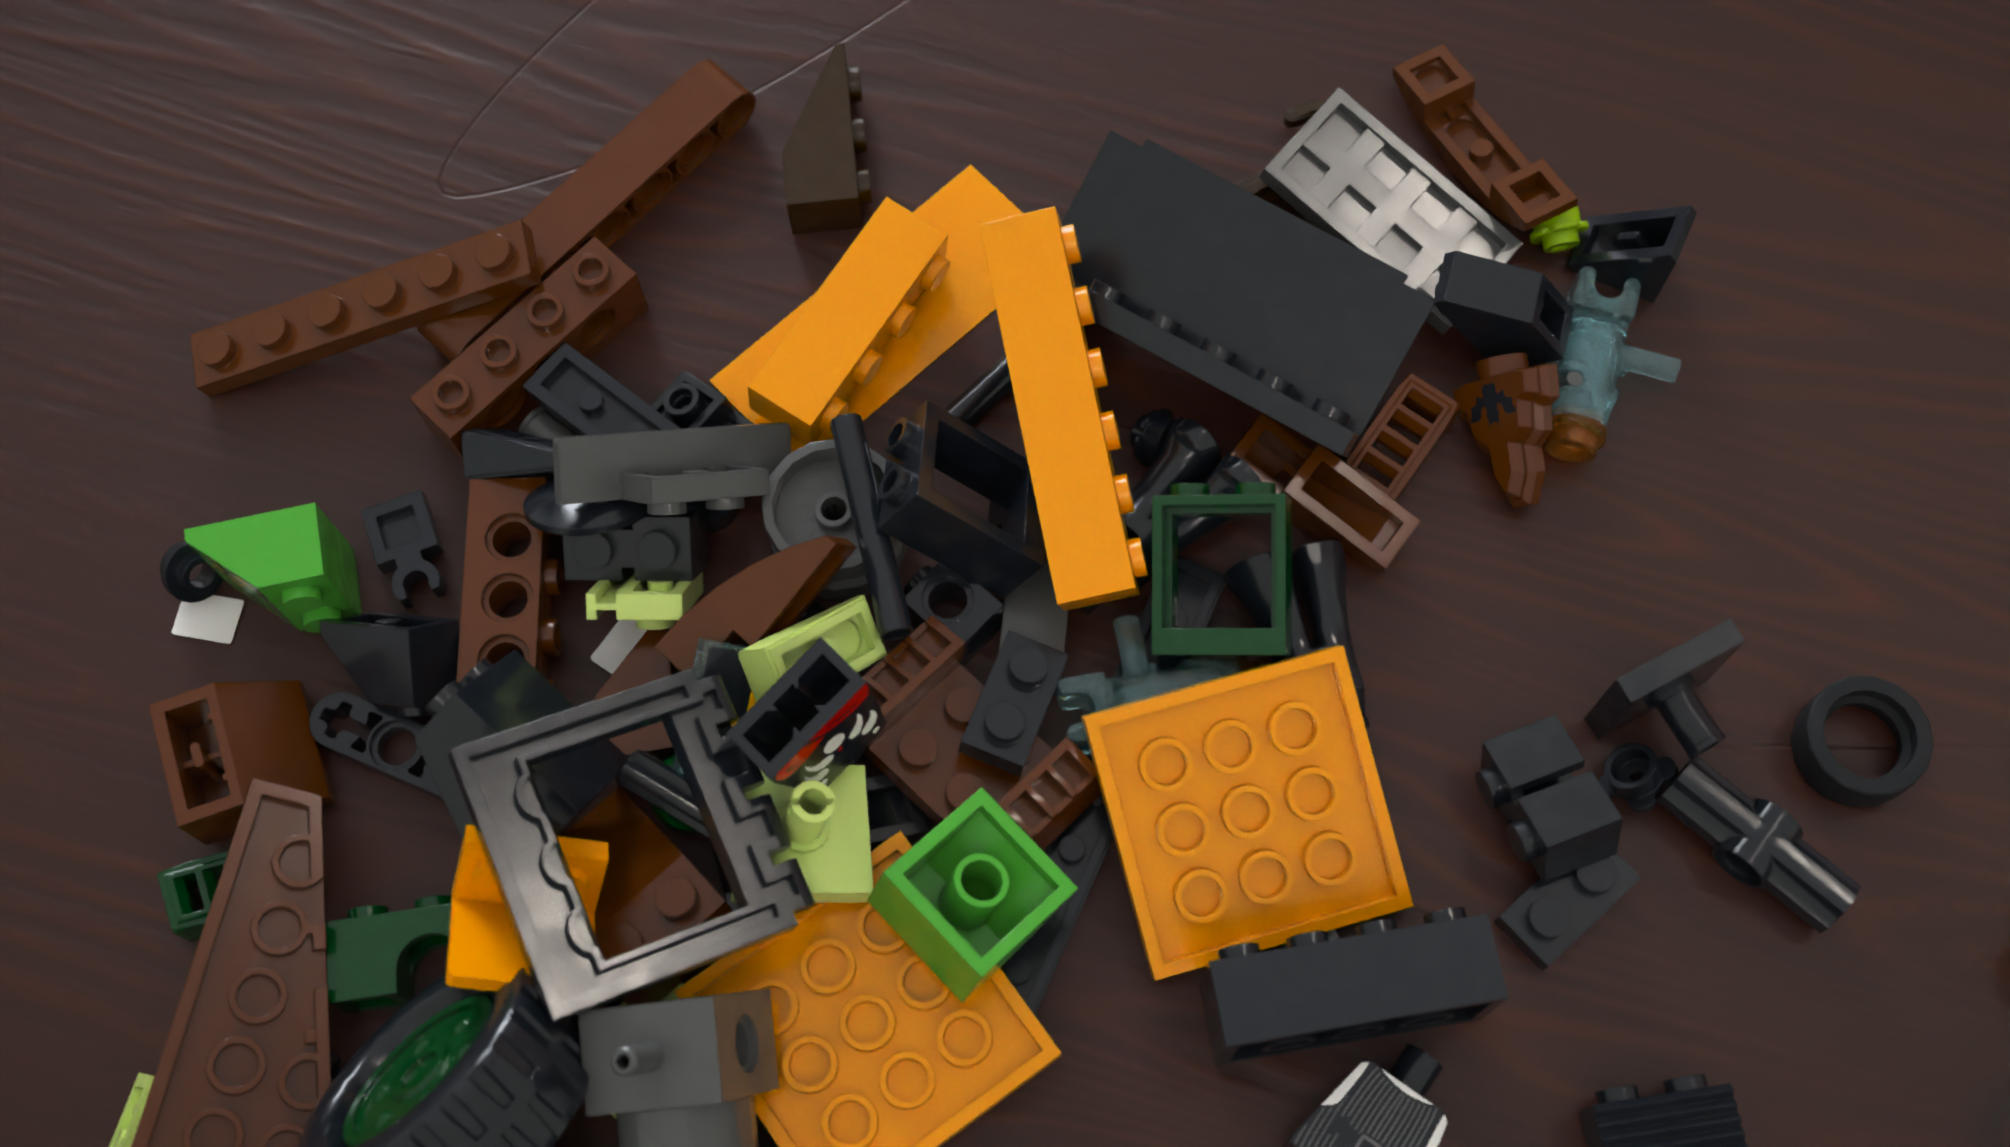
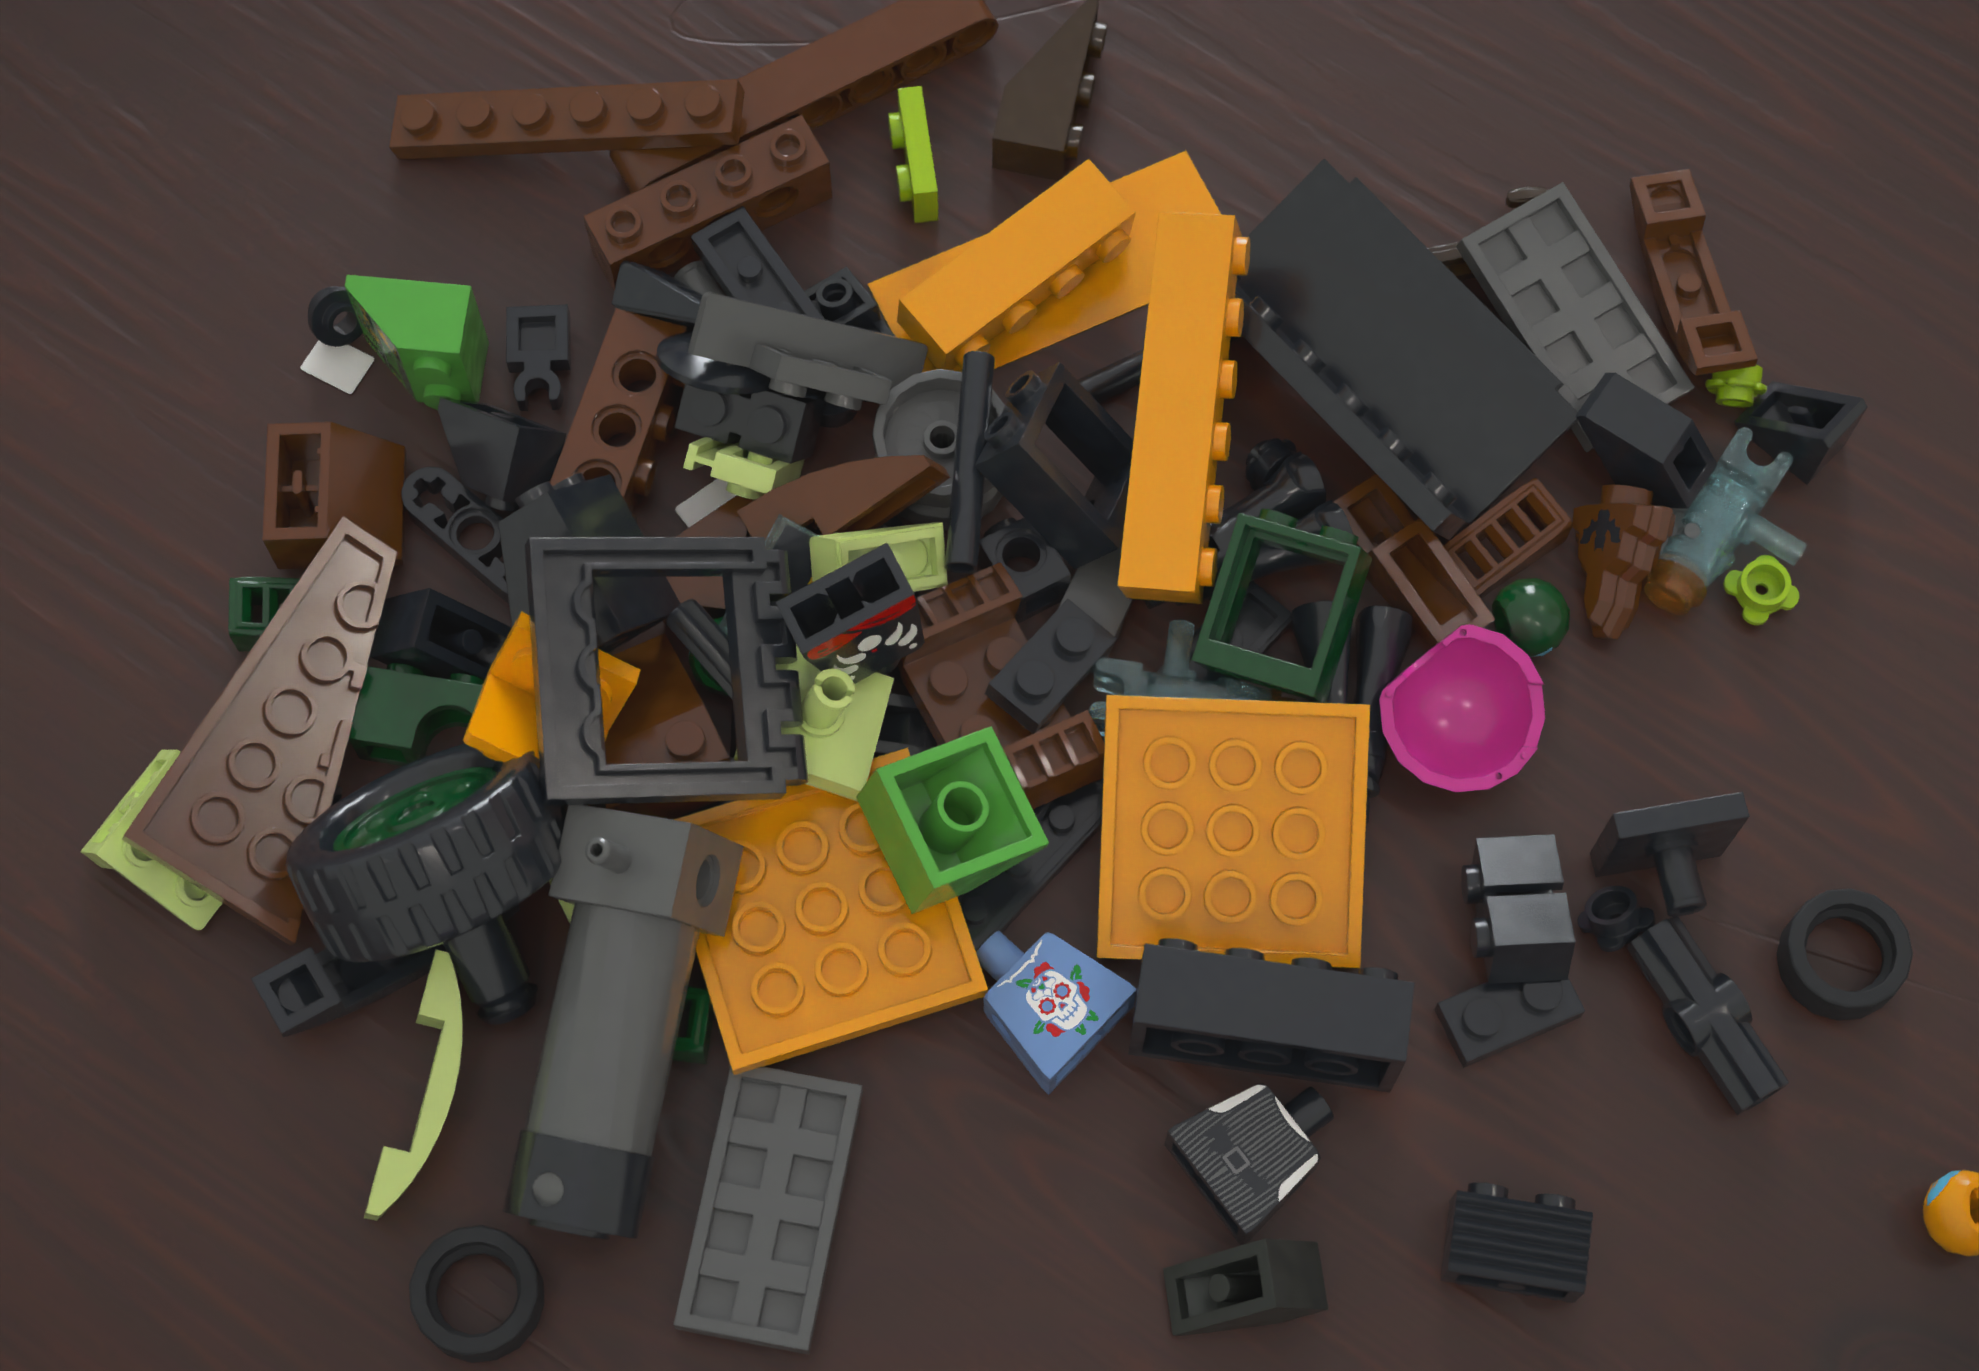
camera: 15 degrees right, 0 degrees up
(390, 866) = (437, 635): none -> black slope
(706, 224) = (916, 178): none -> lime plate
(1124, 1042) = (1051, 1003): none -> medium blue torso
(1428, 620) = (1465, 711): none -> dark pink cylinder
(1451, 508) = (1531, 615): none -> dark green piece
(1661, 401) = (1767, 573): none -> lime plate

